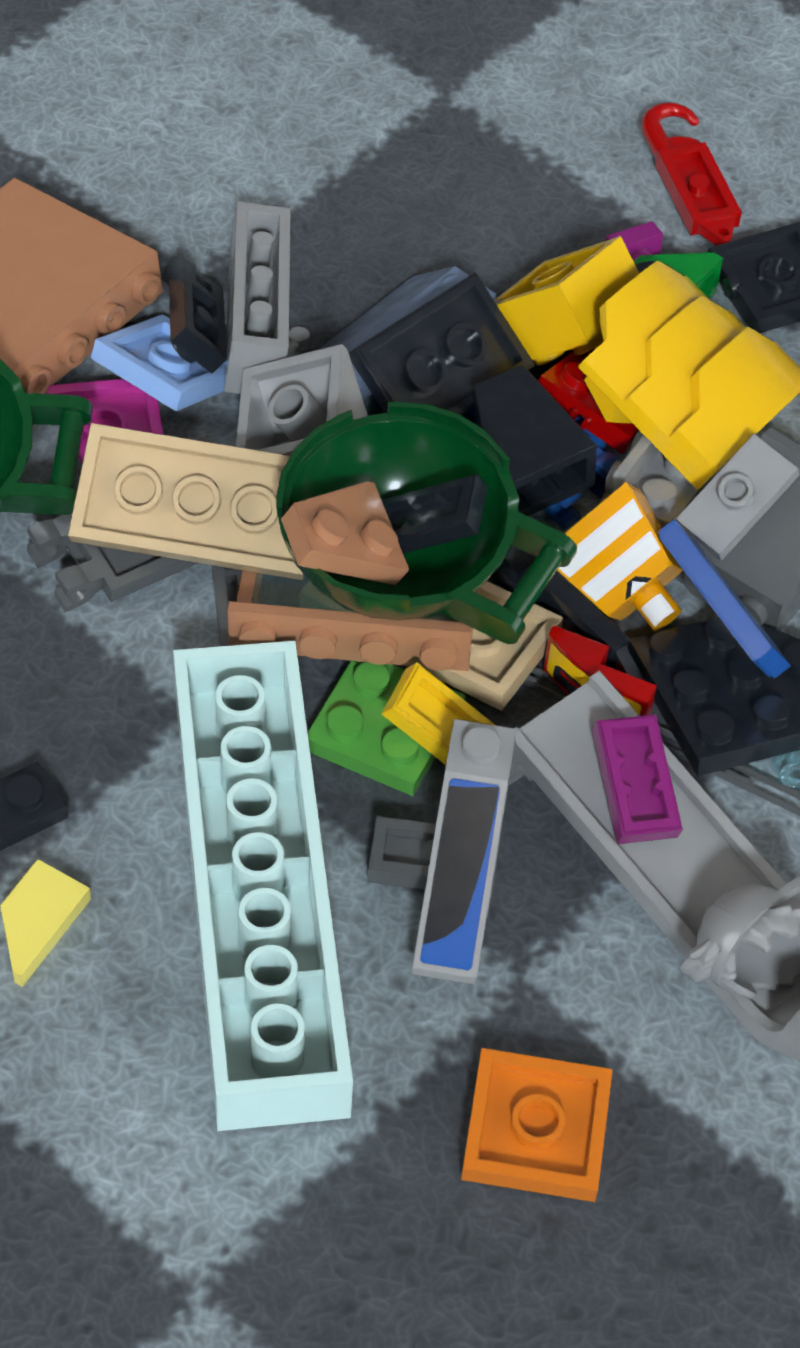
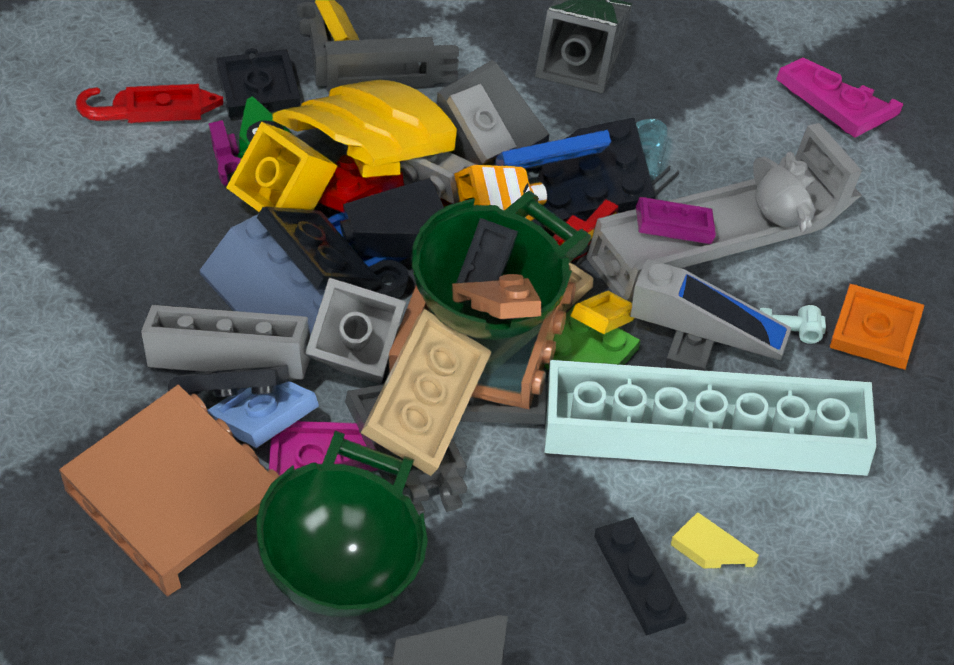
camera: 80 degrees left, 5 degrees down
(512, 1018) = (808, 323): none -> light aqua bar

